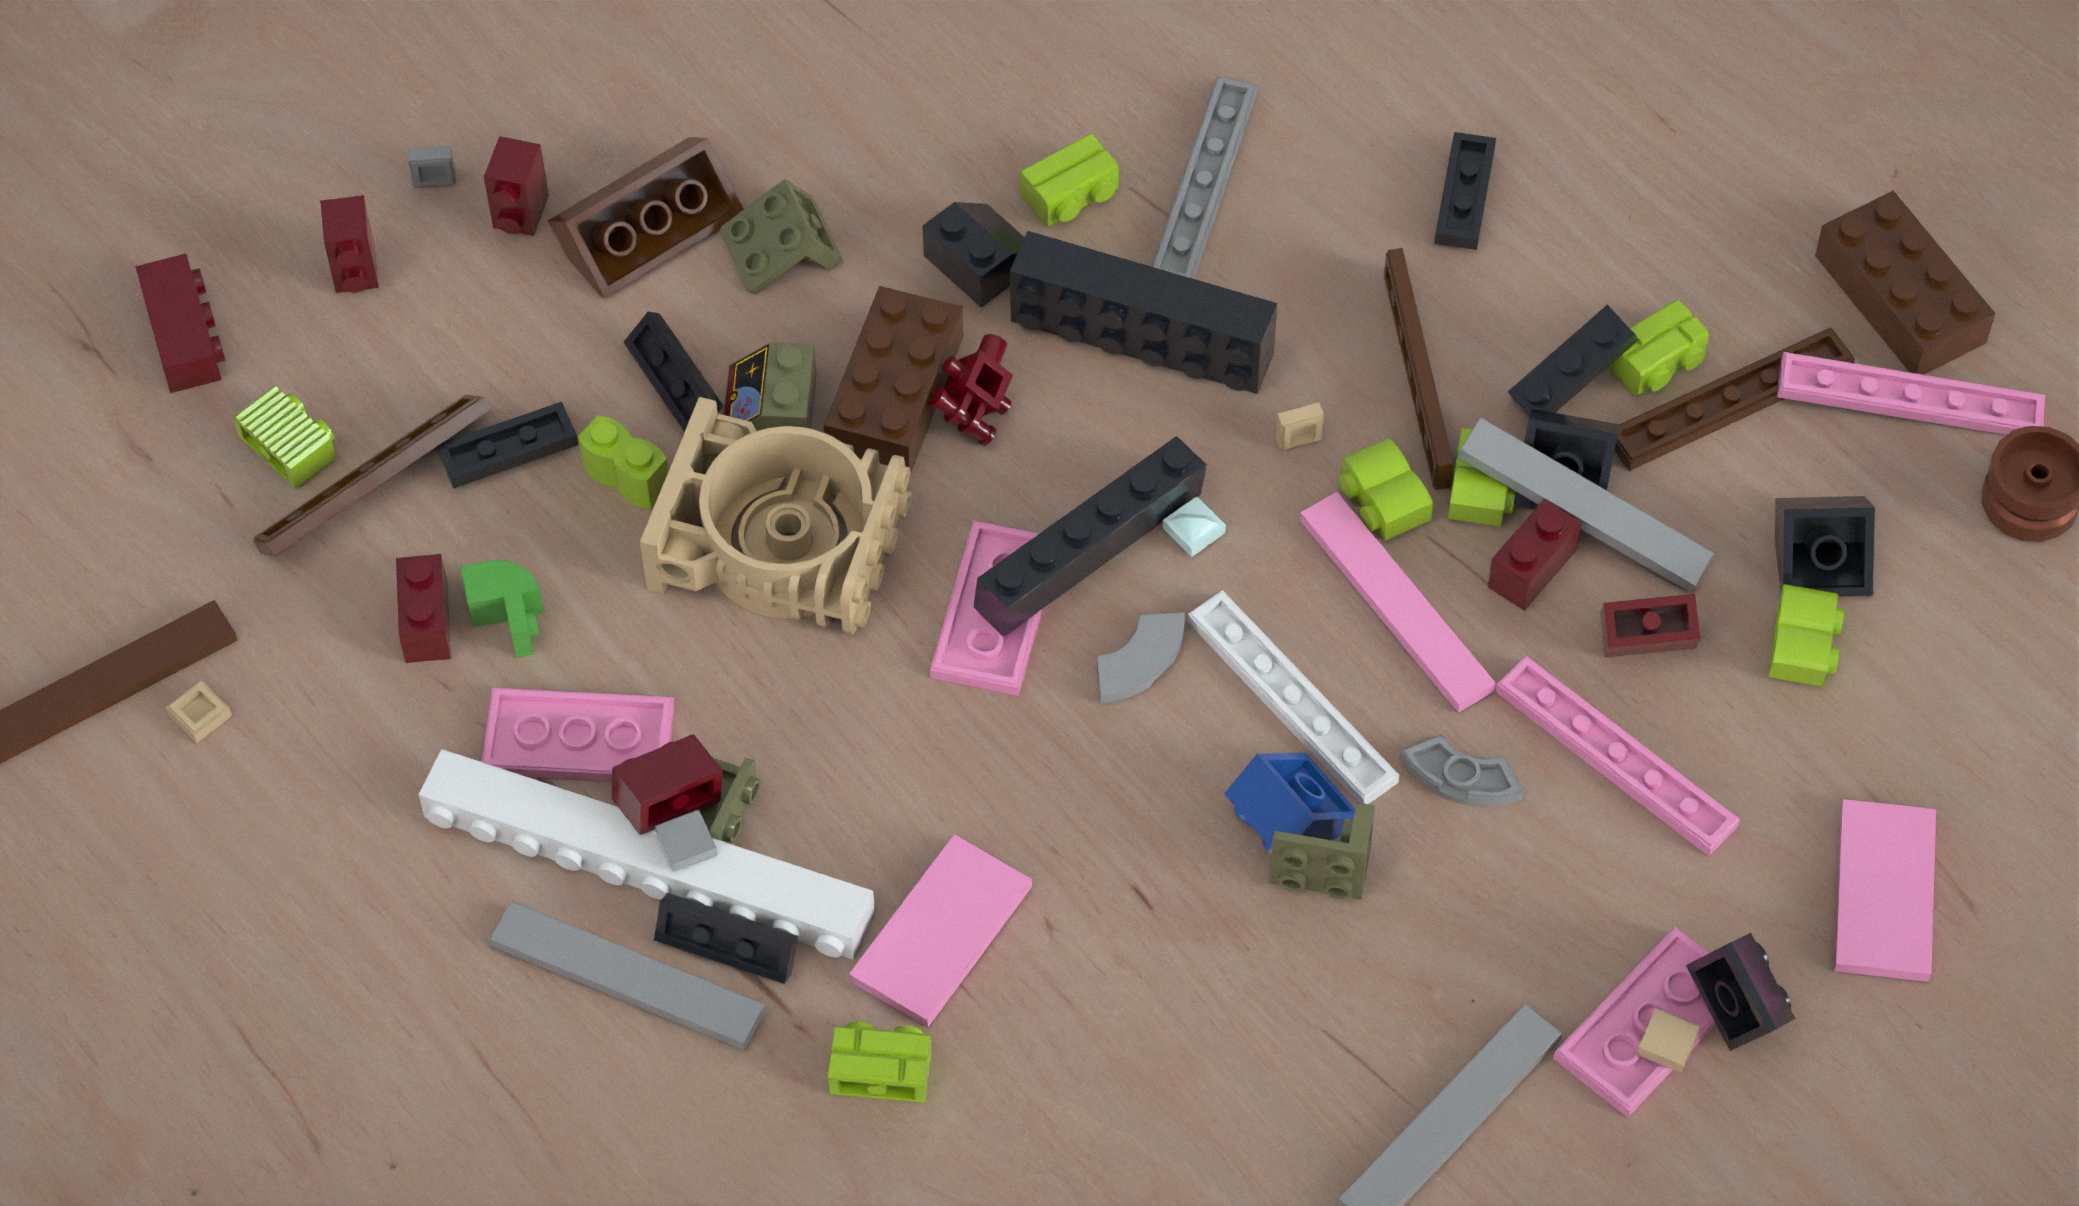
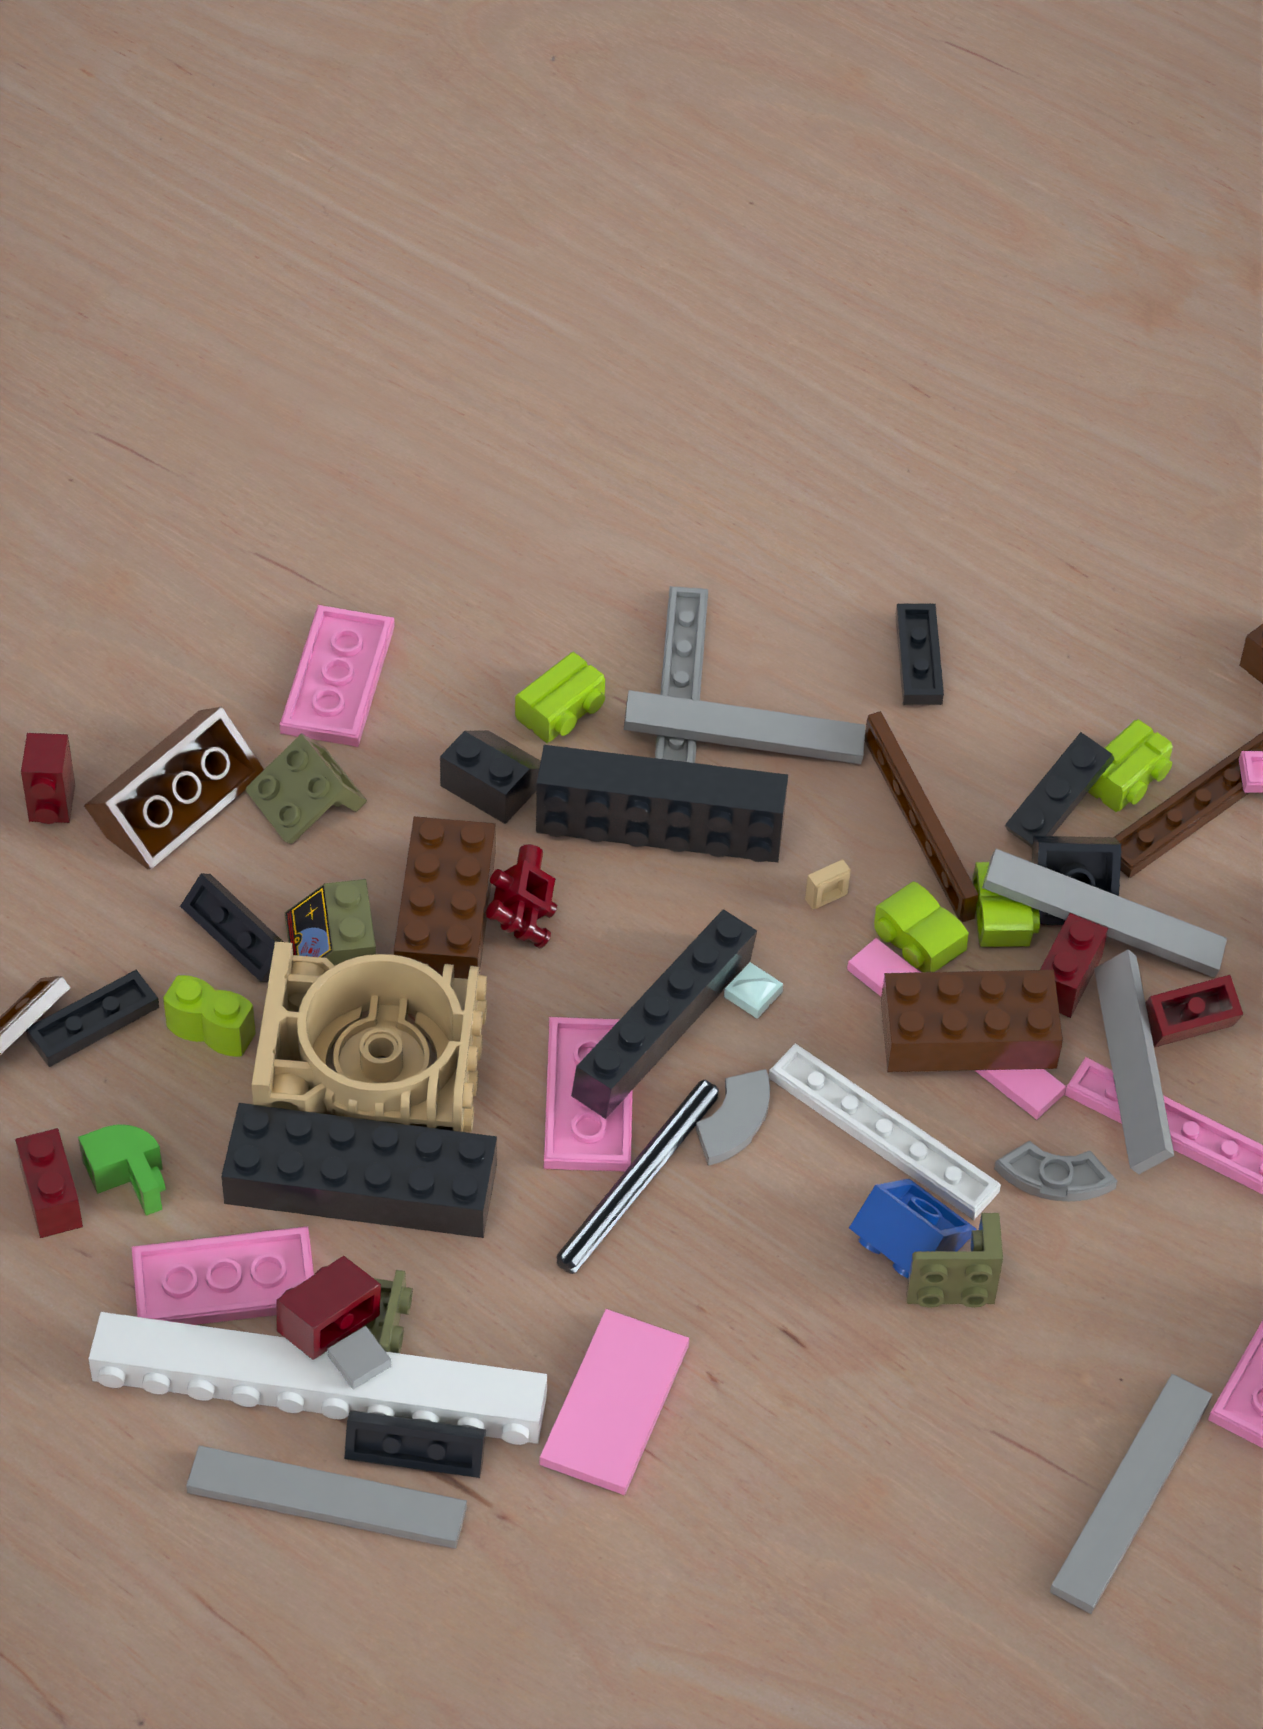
camera: 15 degrees left, 5 degrees down
(738, 648) = (360, 1170): none -> black brick
(844, 120) = (337, 675): none -> bright pink tile
(880, 1062) = (591, 1536): lime brick -> none
(1022, 702) = (637, 1177): none -> axle
(1256, 242) = (744, 727): none -> light grey tile
(1408, 597) = (971, 1020): none -> reddish brown brick
(1571, 669) = (1133, 1062): none -> light grey tile

